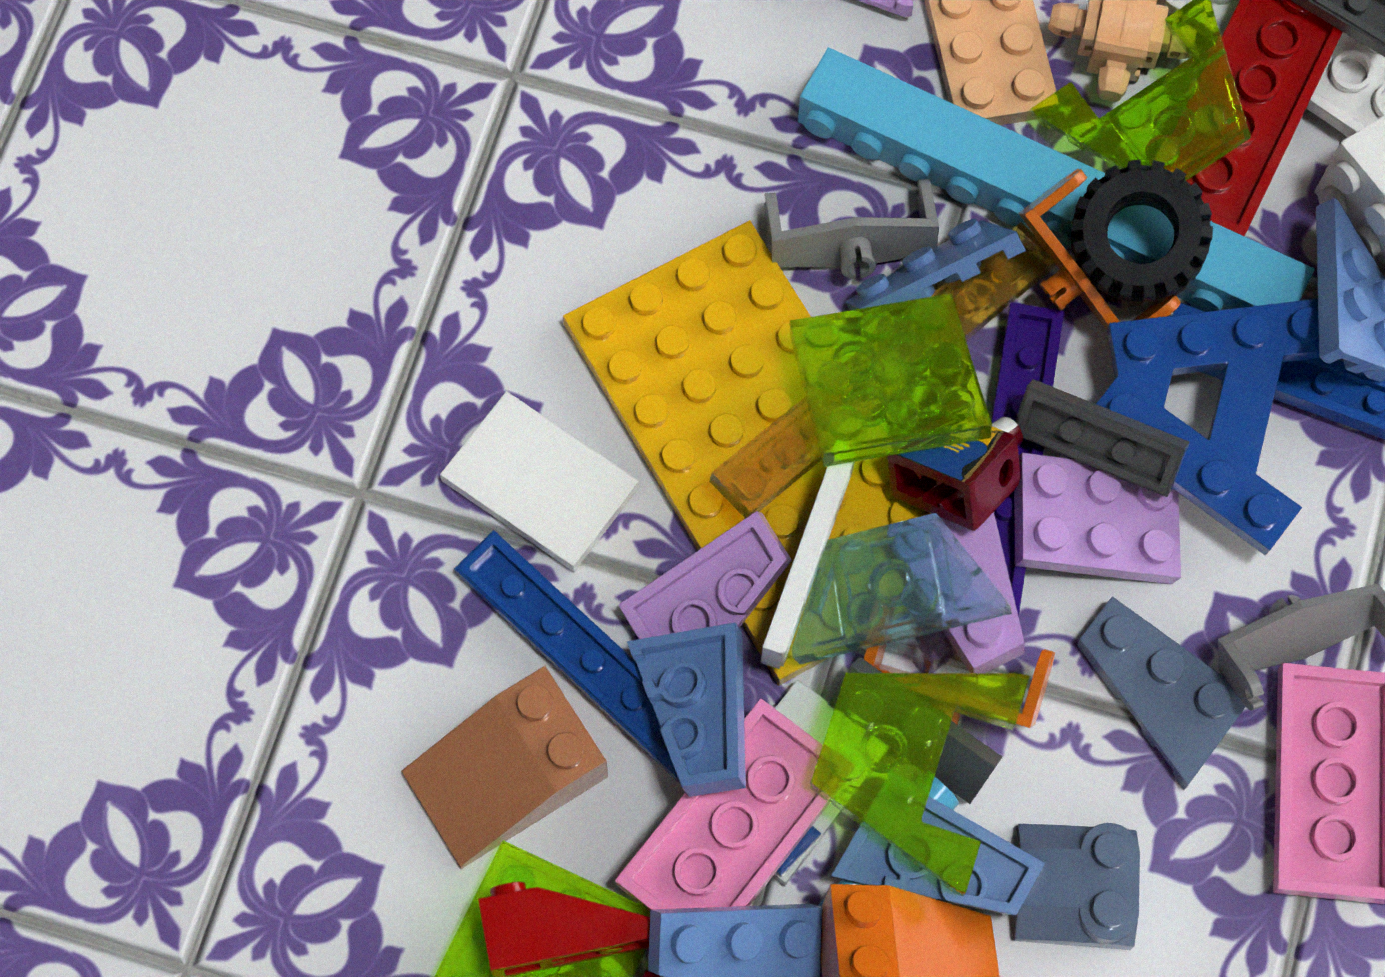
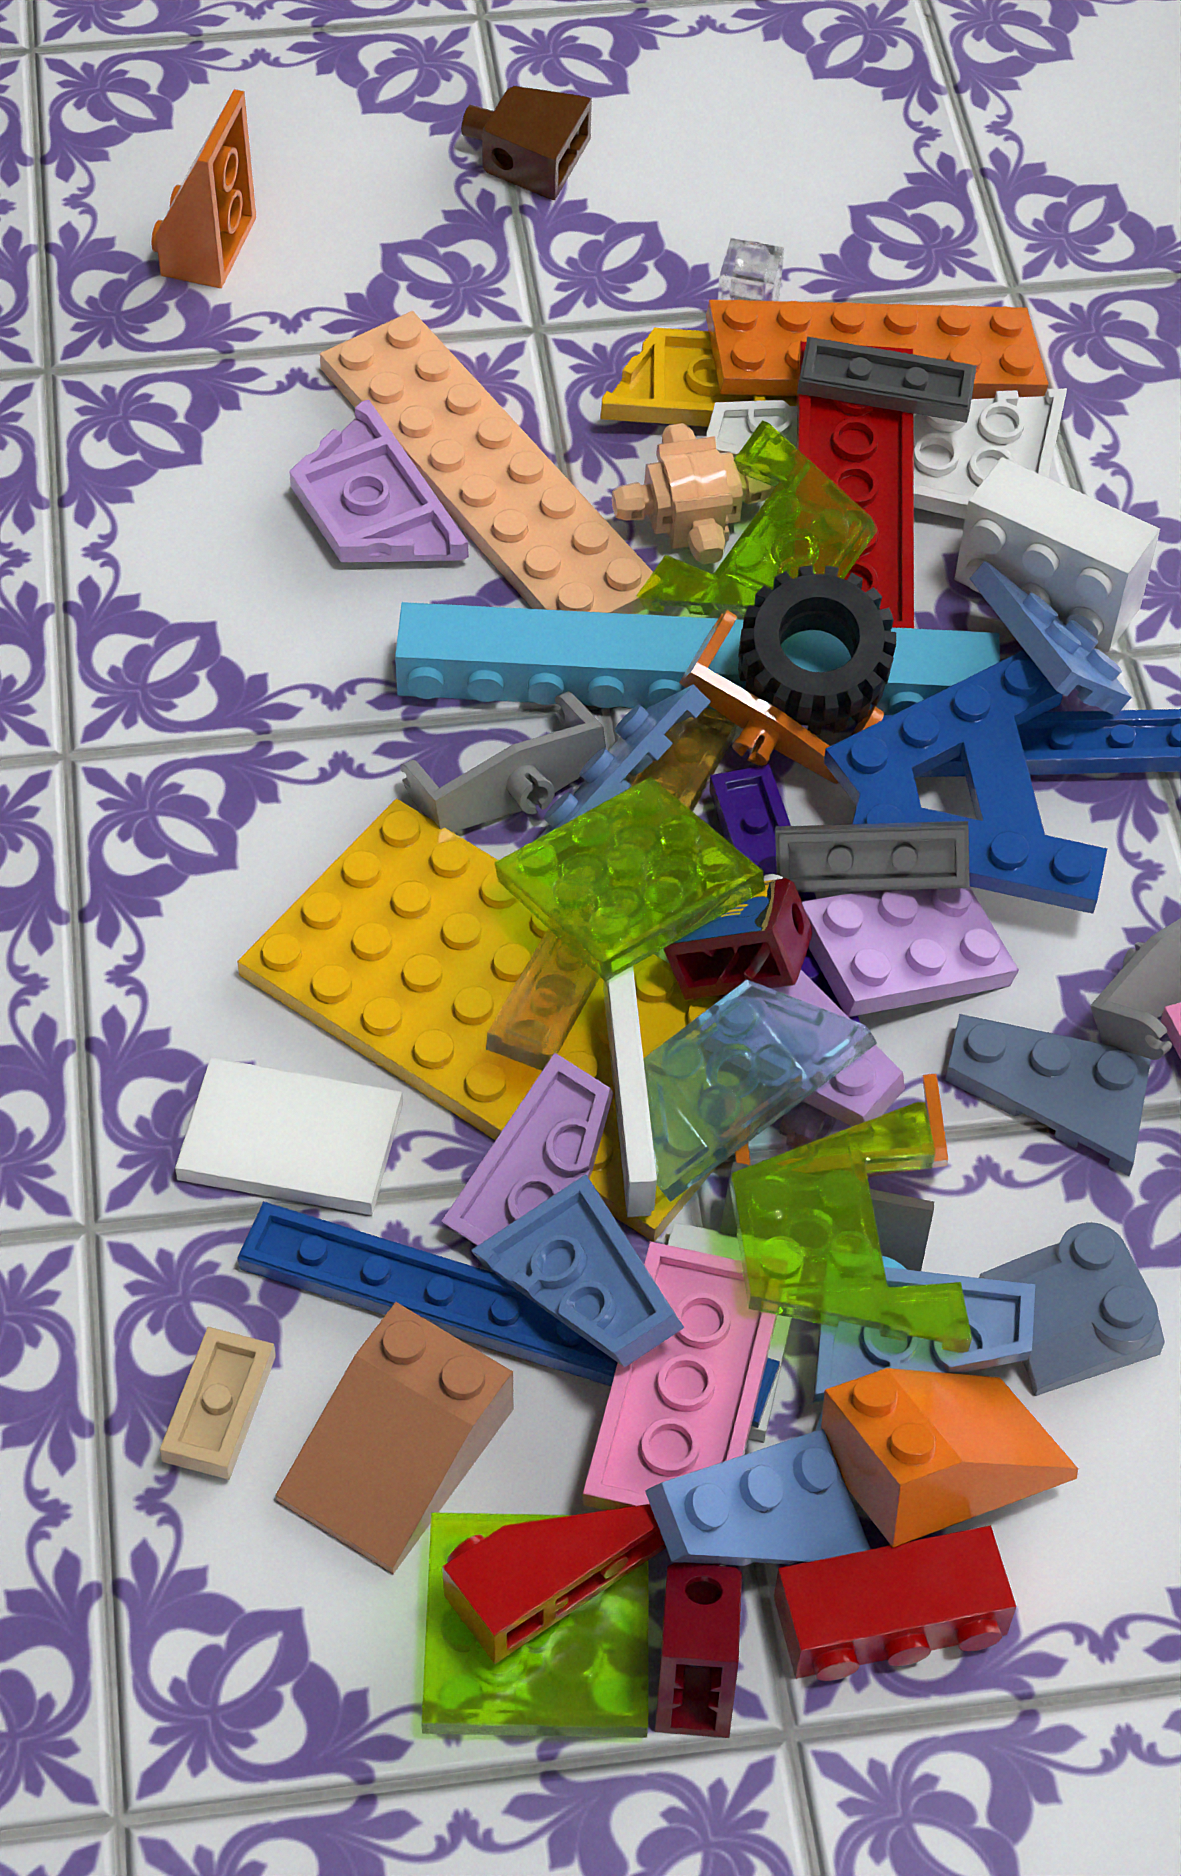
camera: 25 degrees left, 15 degrees down
(389, 681) = (218, 1403): none -> tan plate

